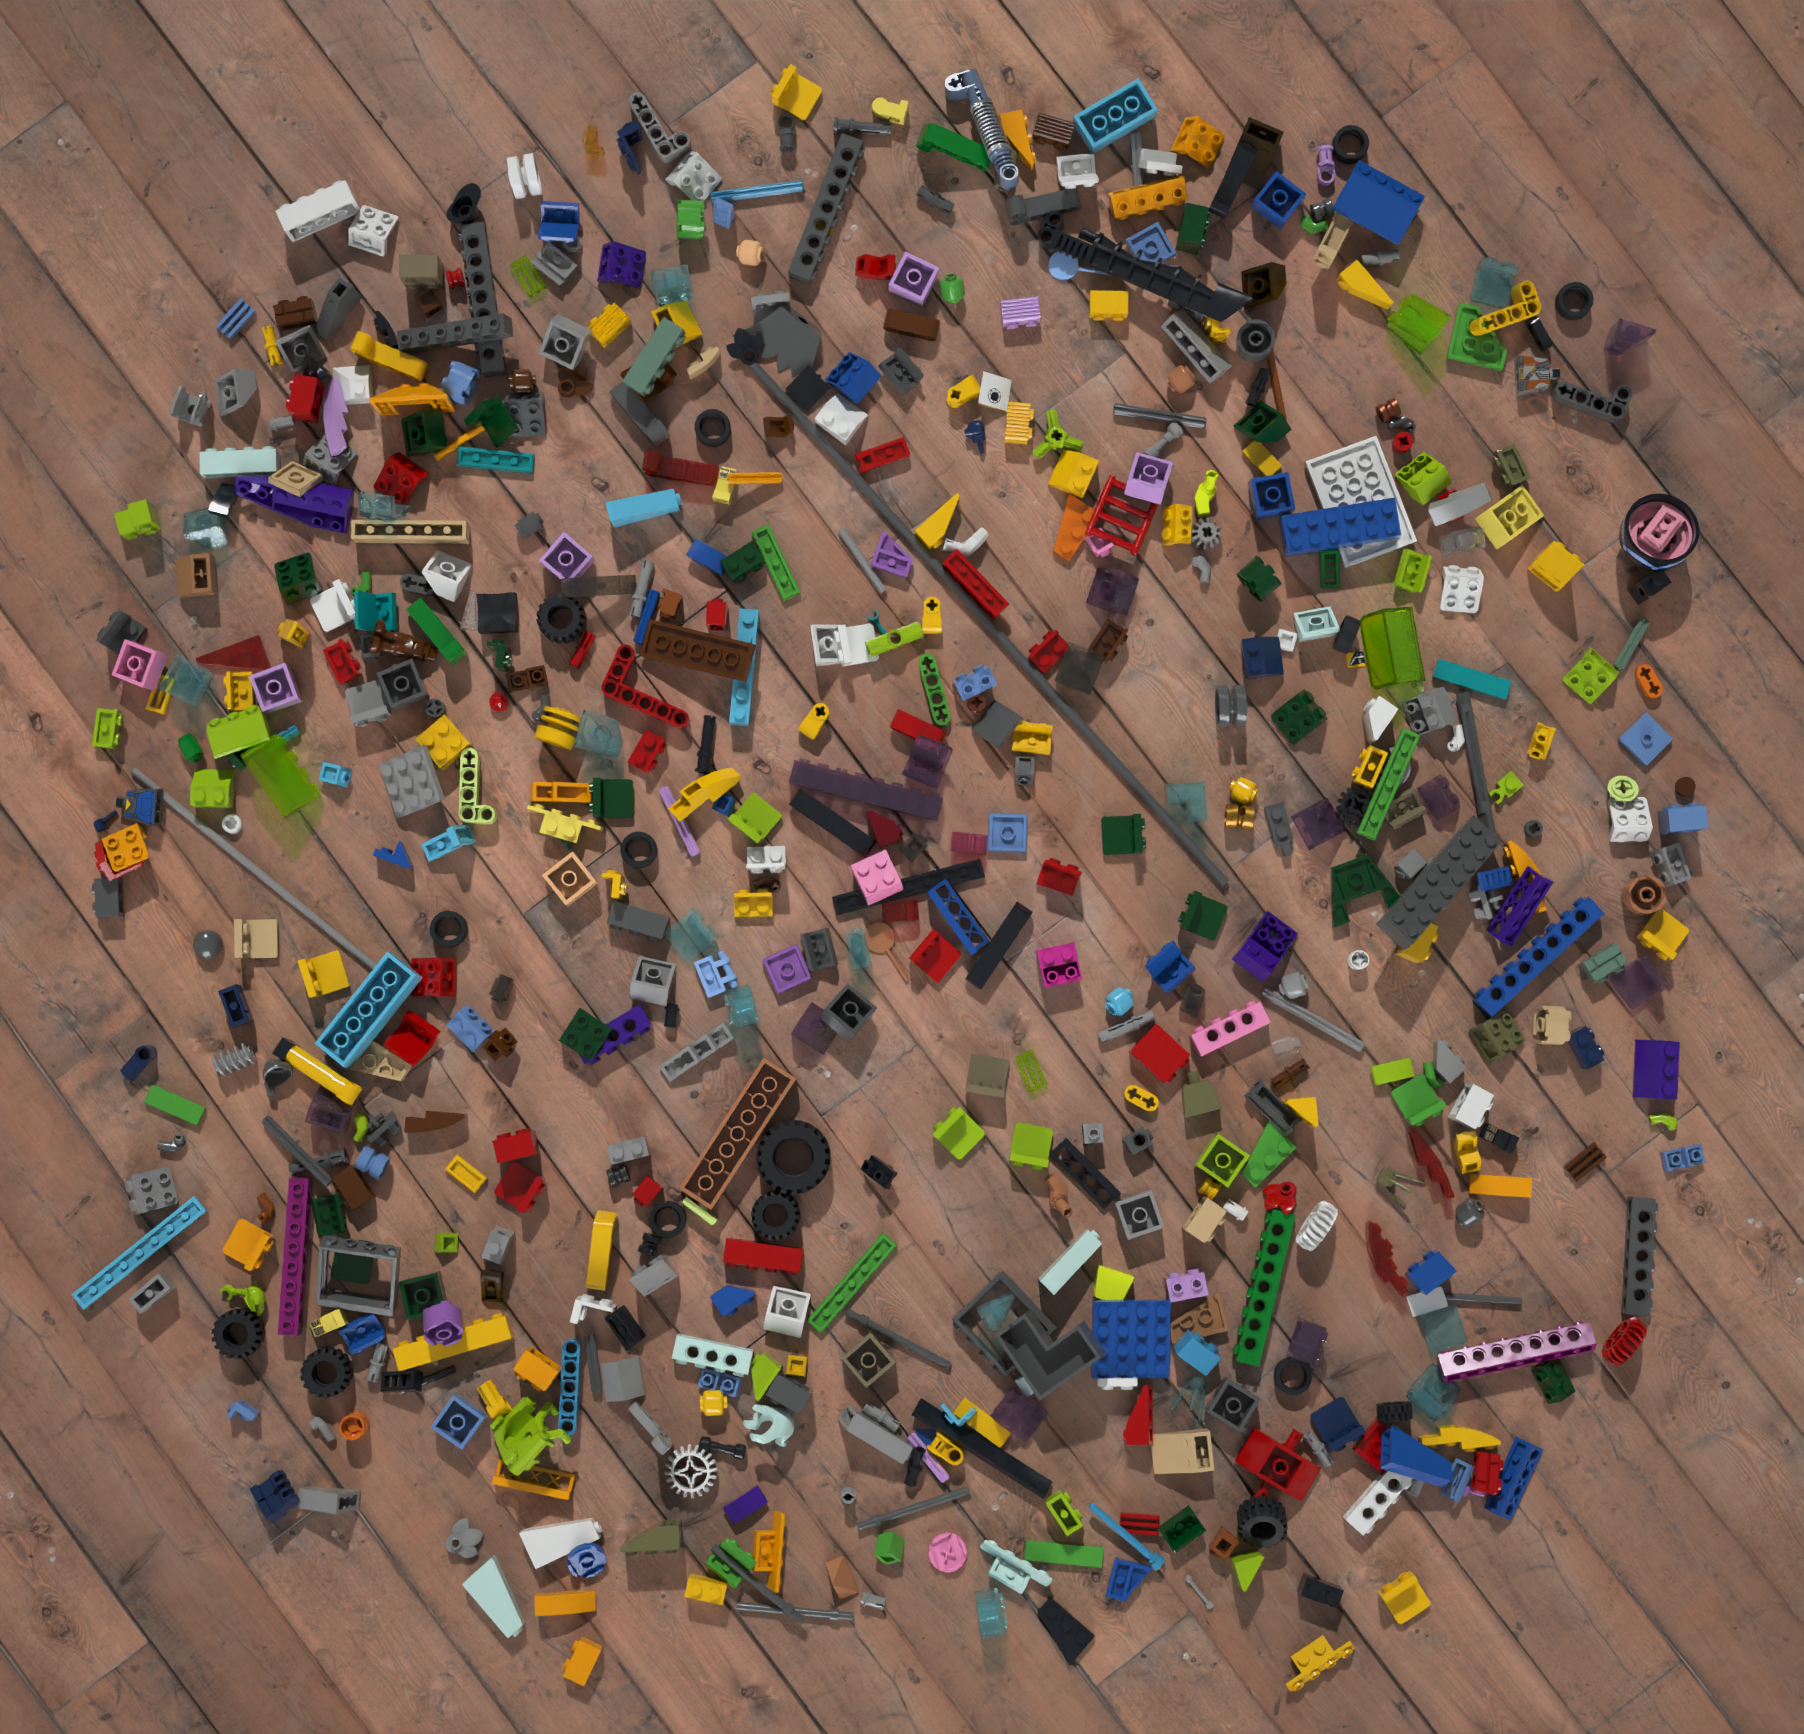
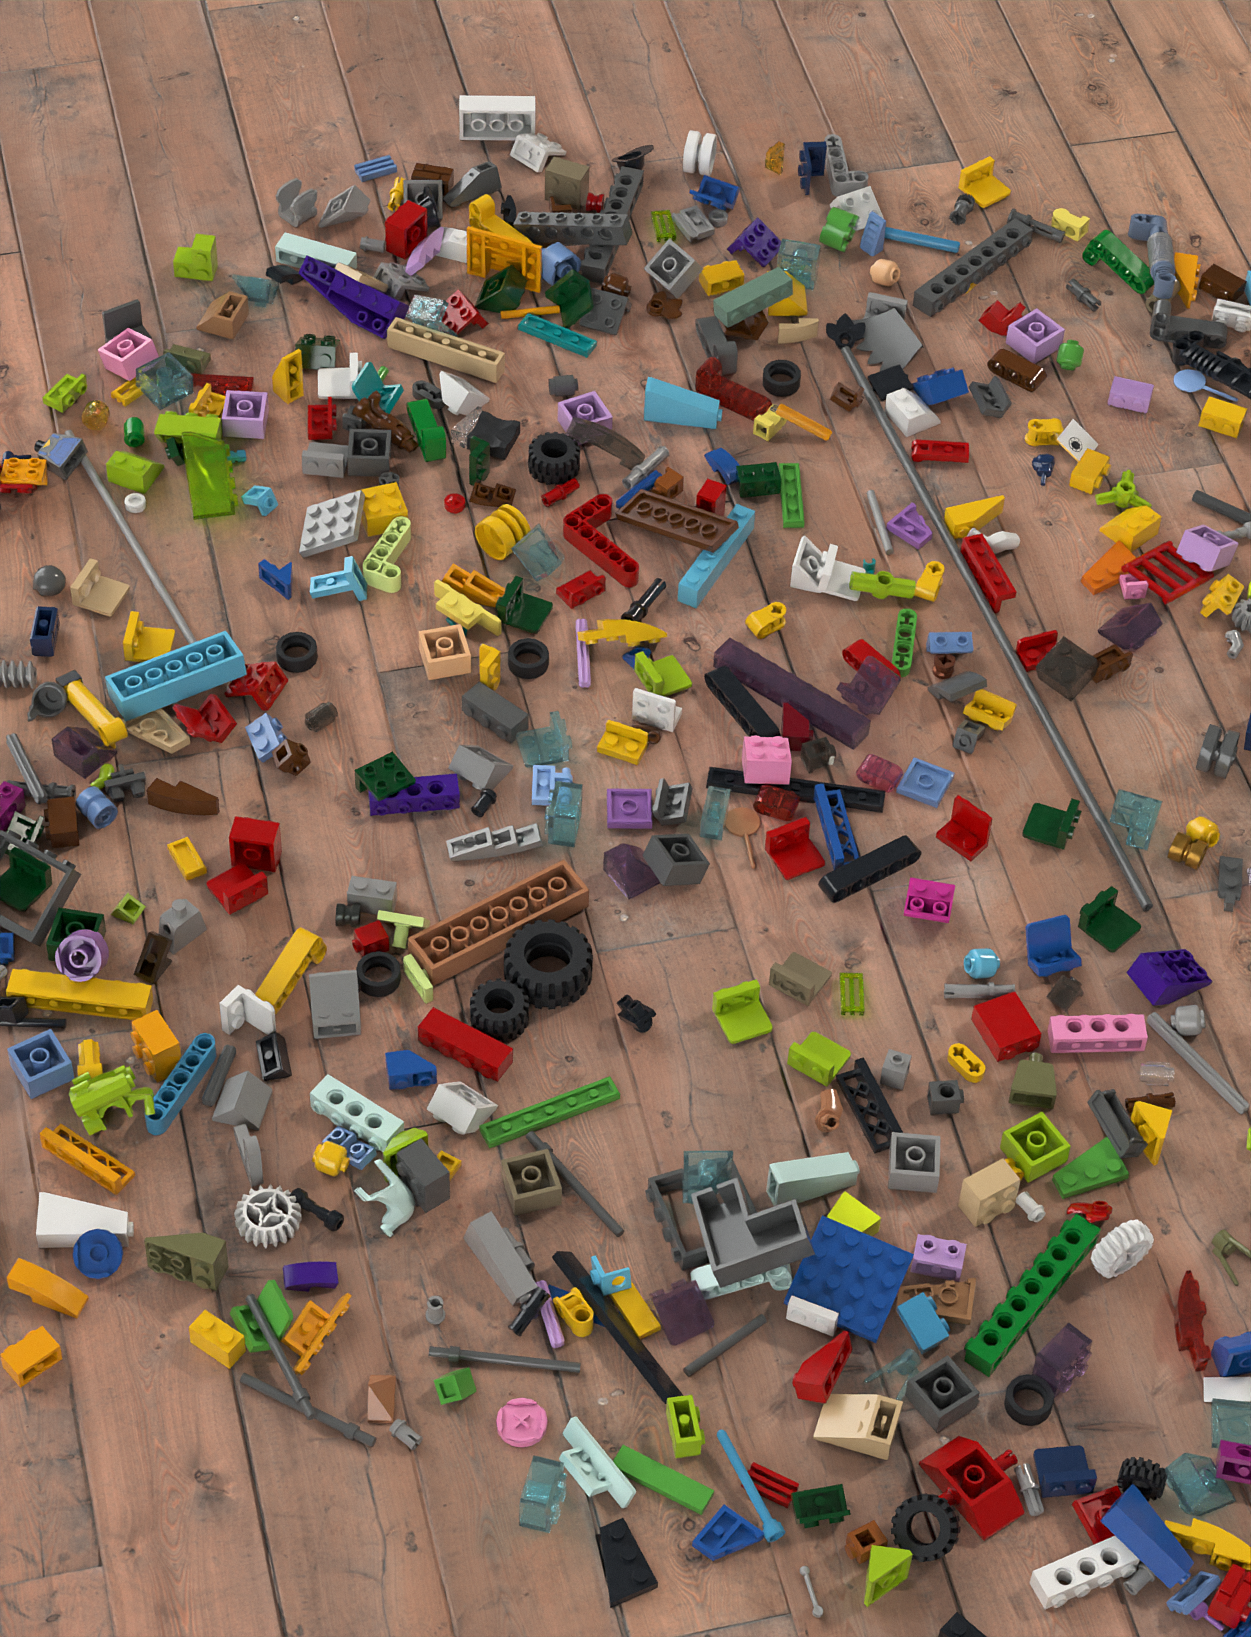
camera: 25 degrees right, 35 degrees down
(147, 744) = (95, 415): none -> clear yellow head
(189, 637) = (193, 360): none -> olive bracket
(665, 1167) = (402, 923): none -> yellowish green tile
(1062, 1425) = (724, 1345): none -> dark grey bar

